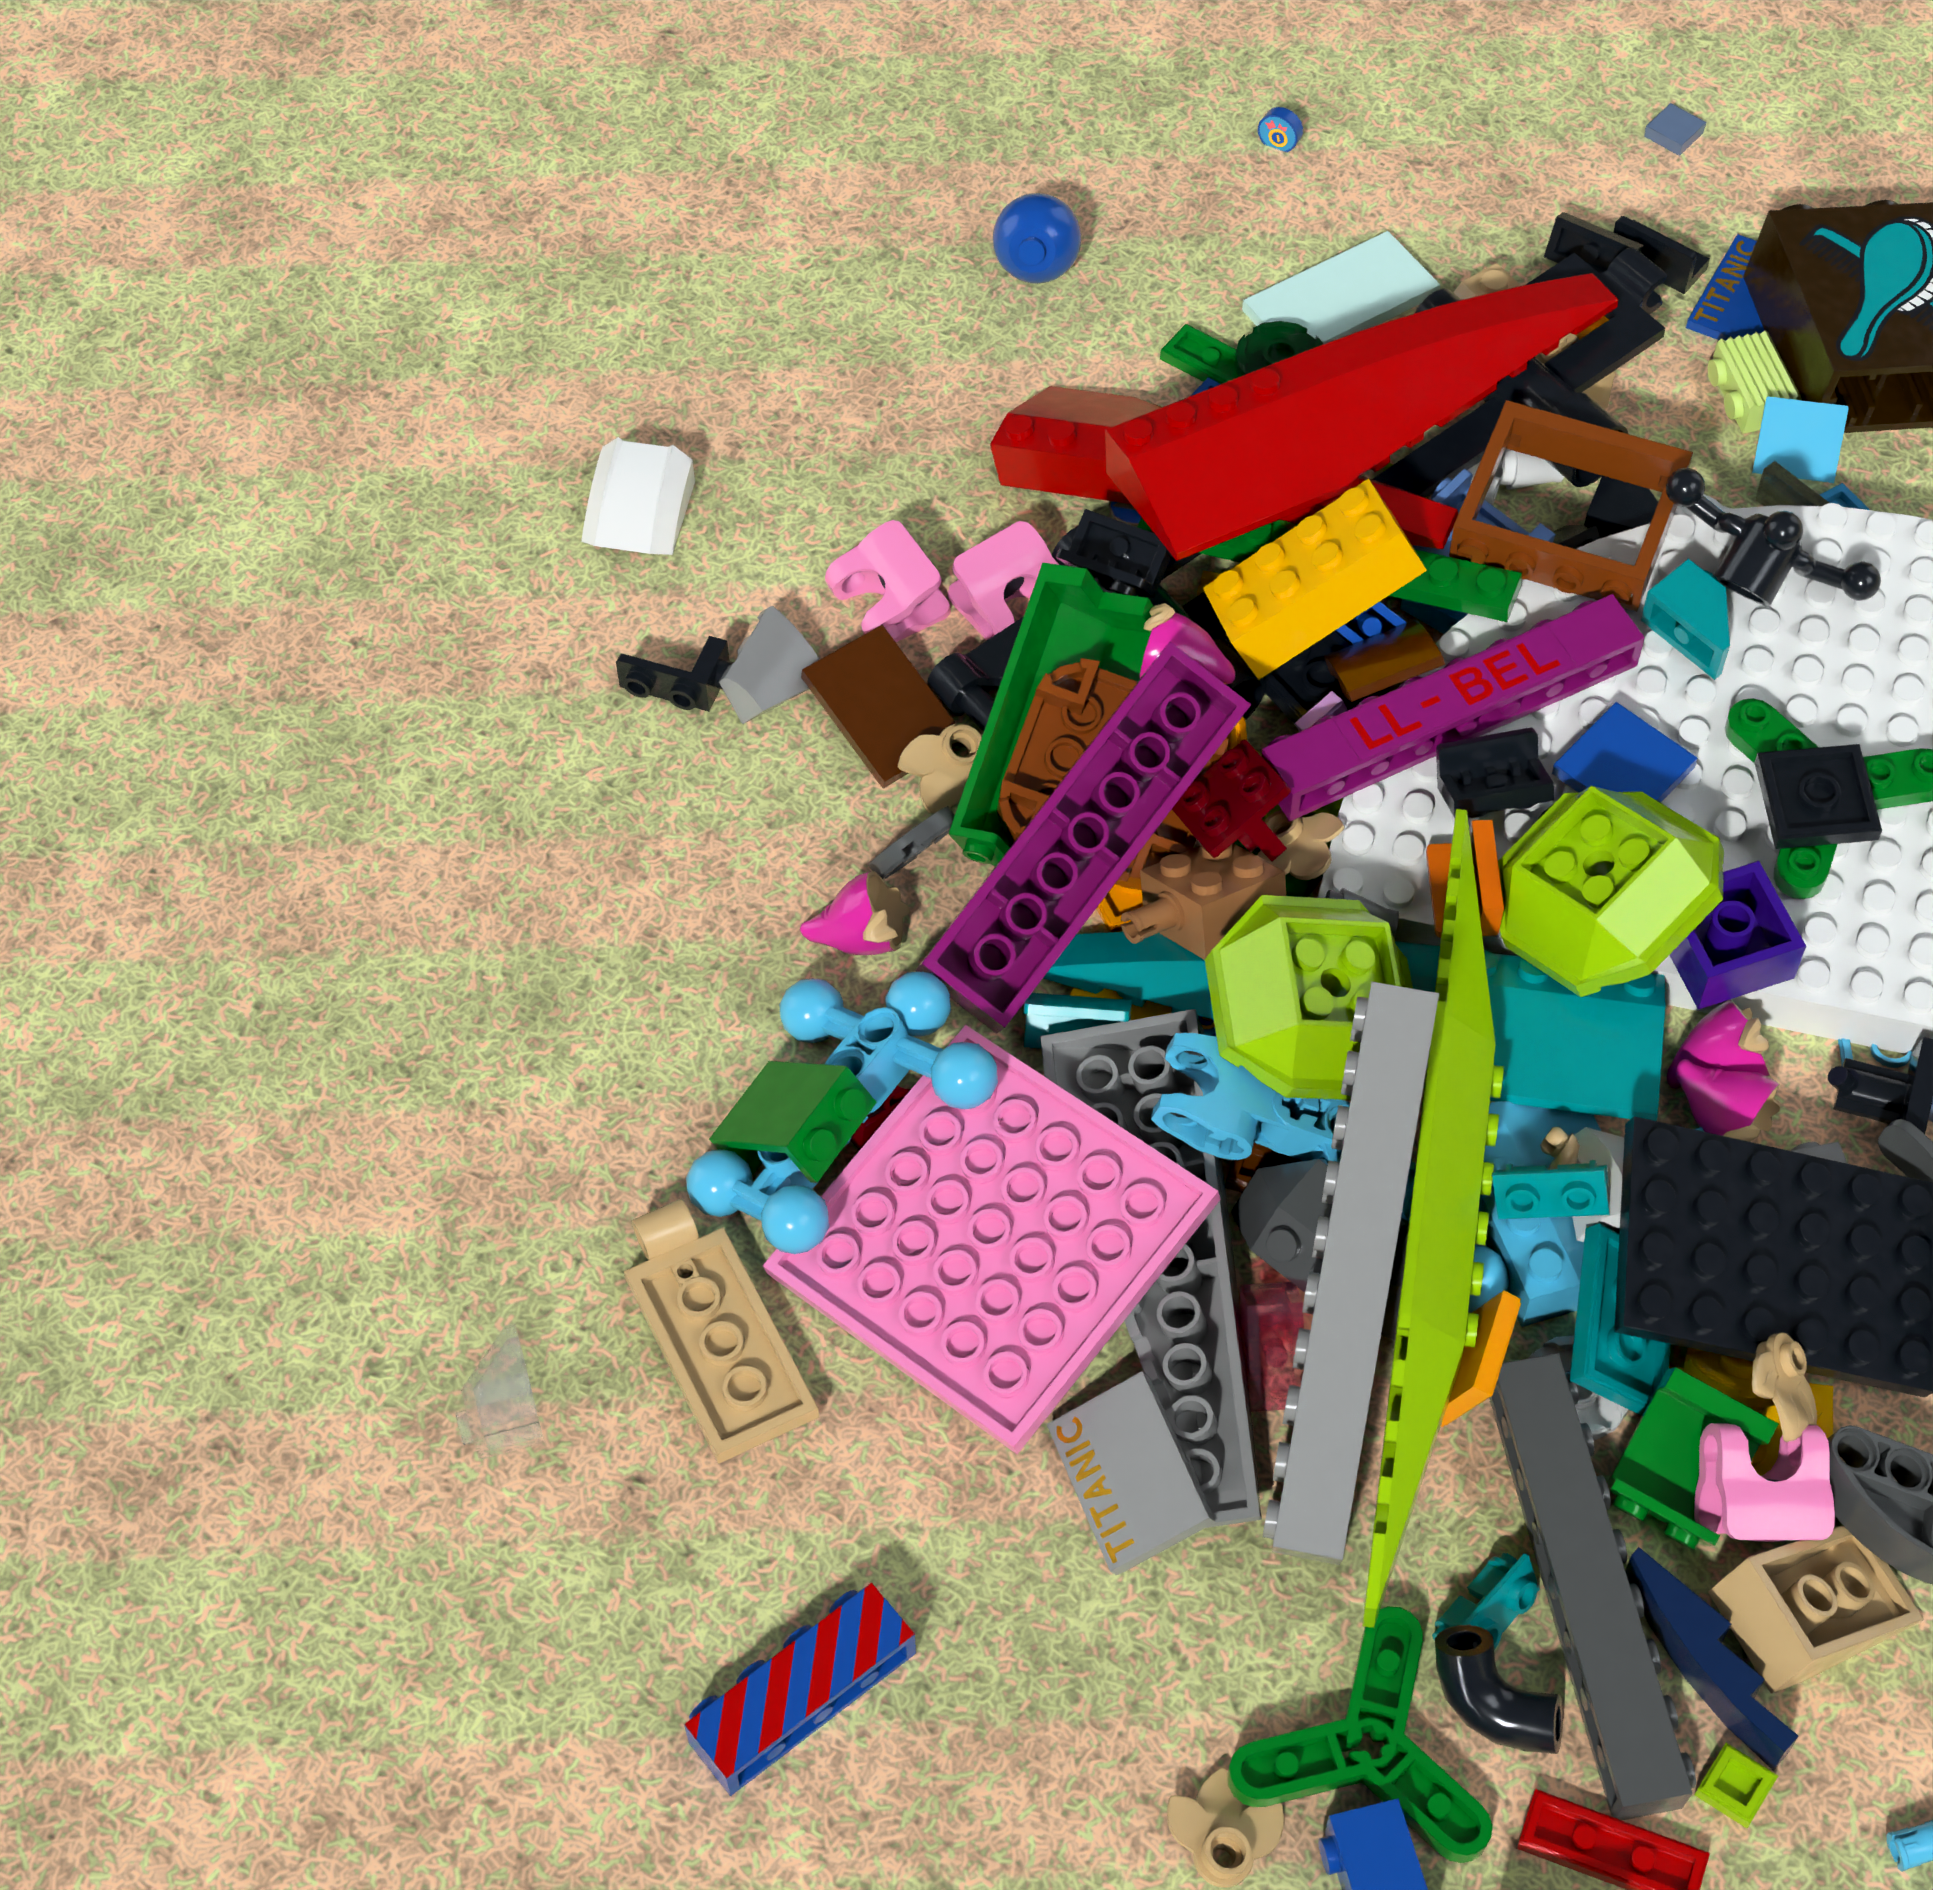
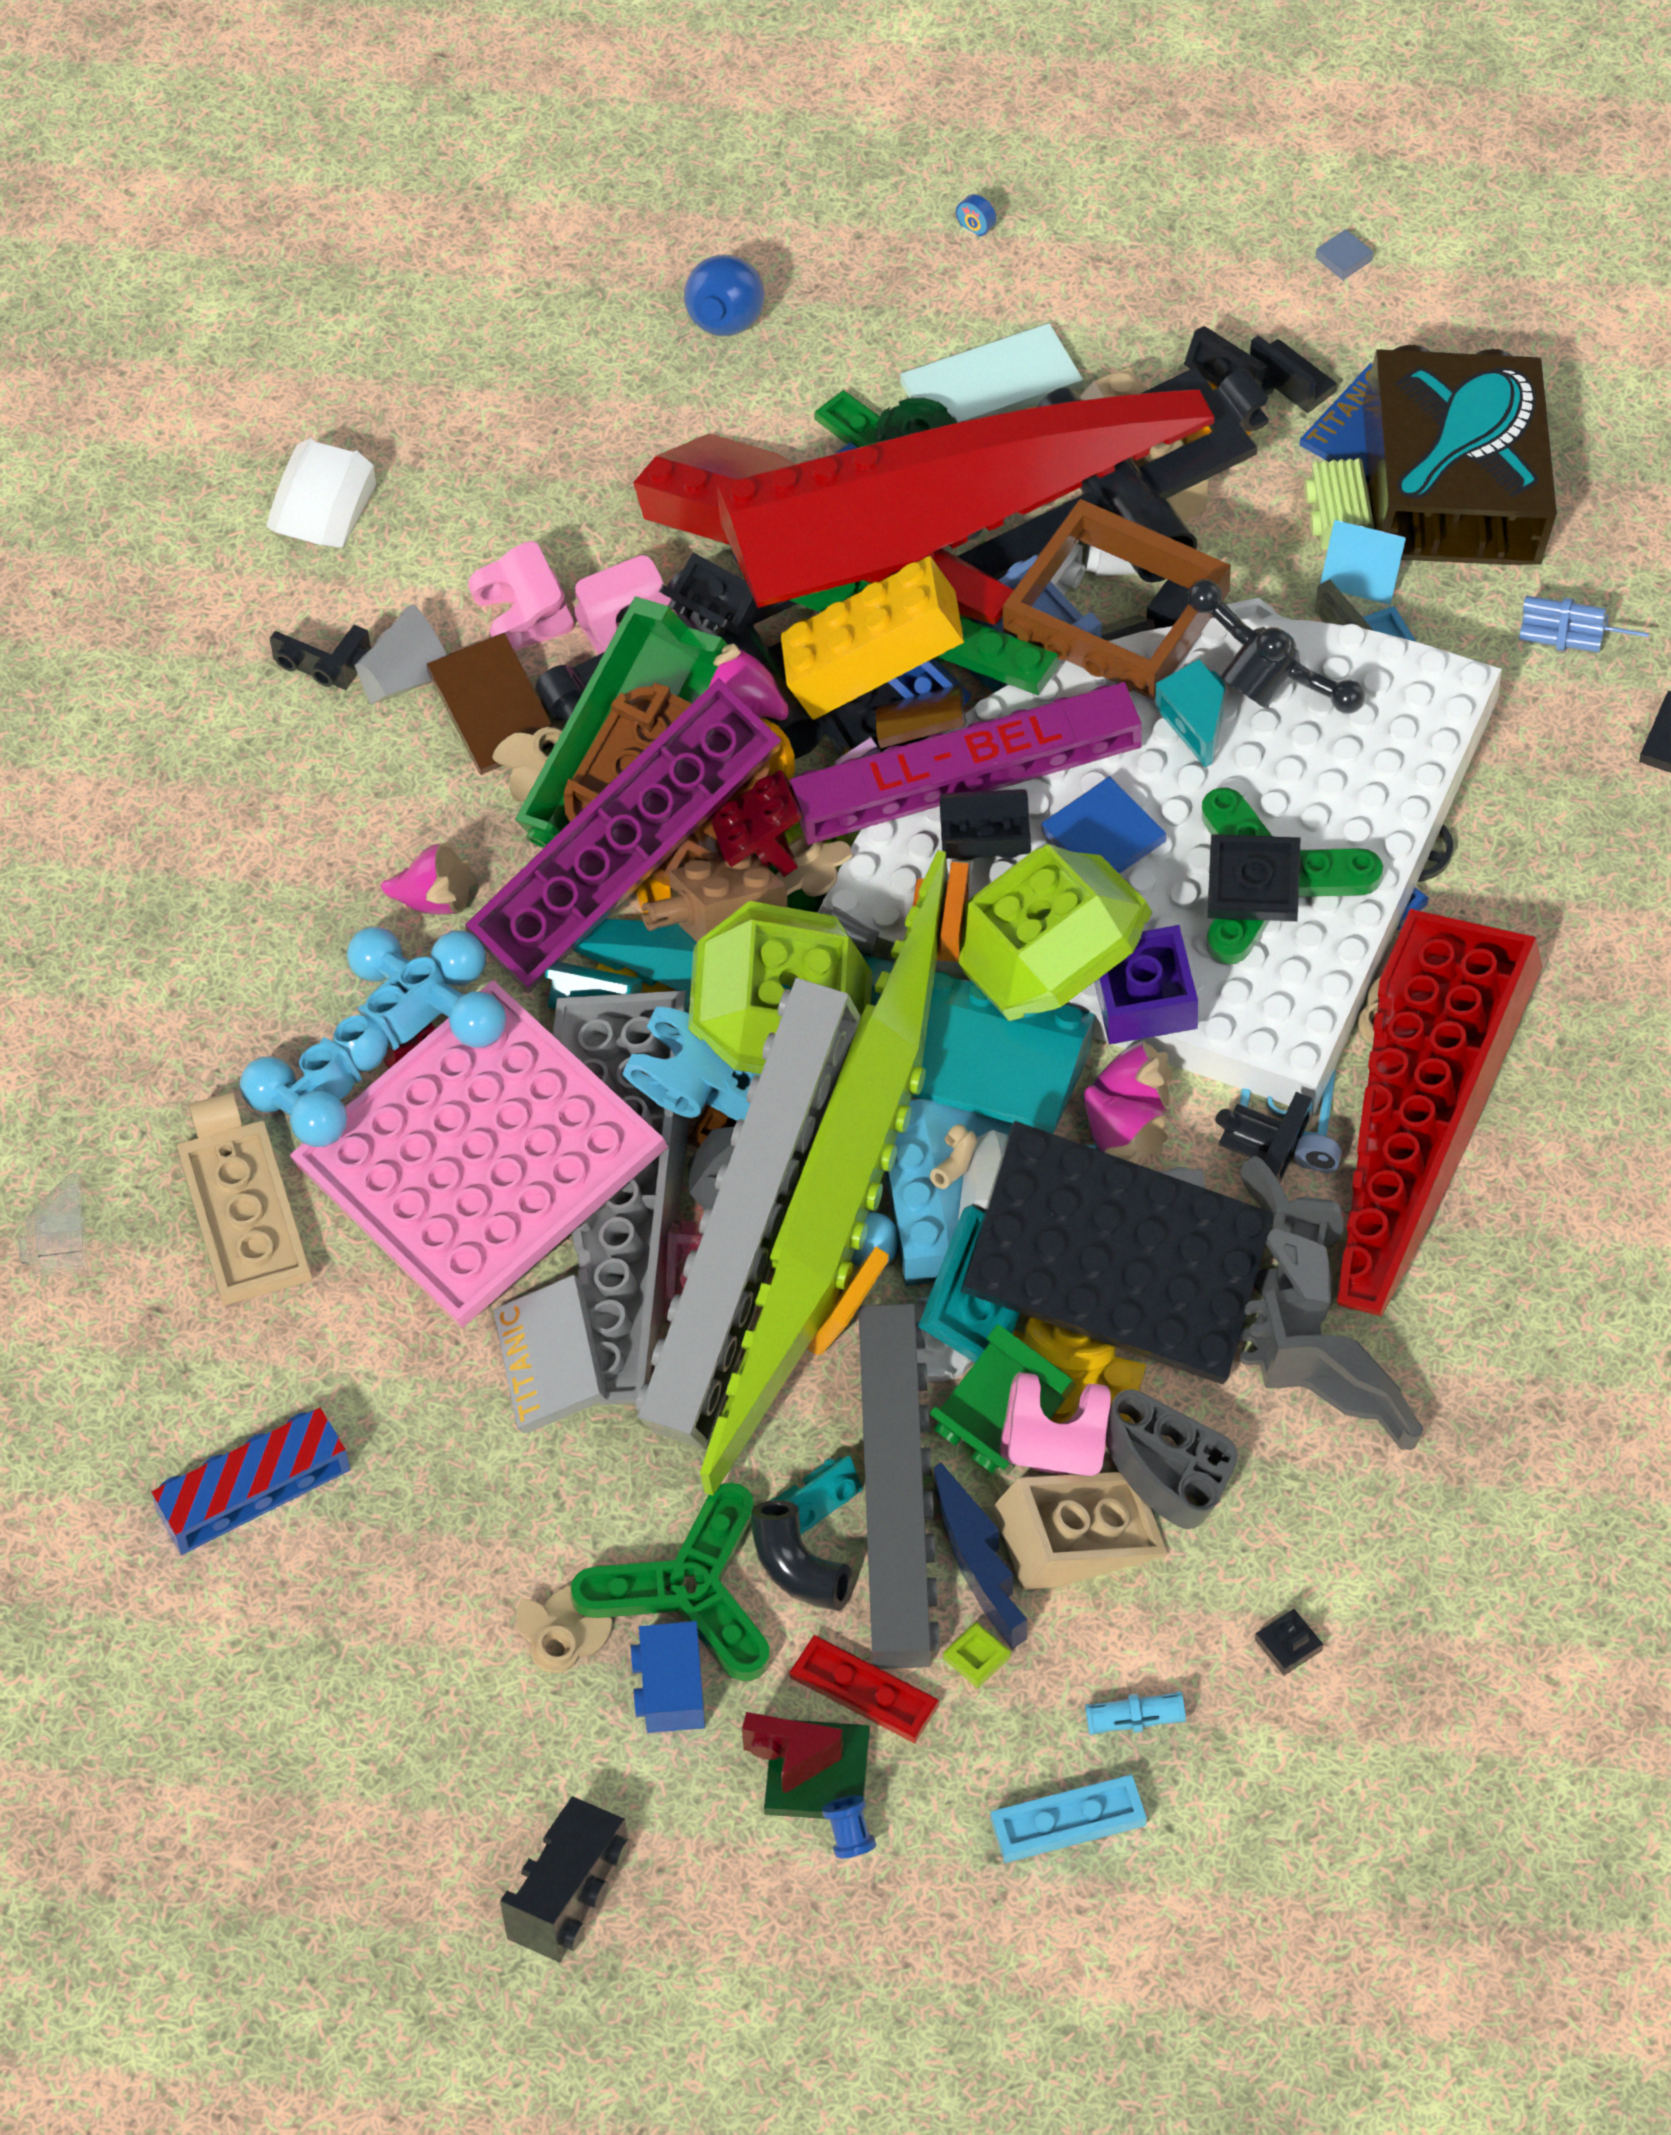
camera: 10 degrees right, 0 degrees up
(796, 1112) = (340, 1035): green panel -> none
(913, 843) = (485, 825): dark grey tile -> none
(1551, 1193) = (937, 1174): teal hinge -> none
(1780, 1376) = (1089, 1352): tan plate -> none

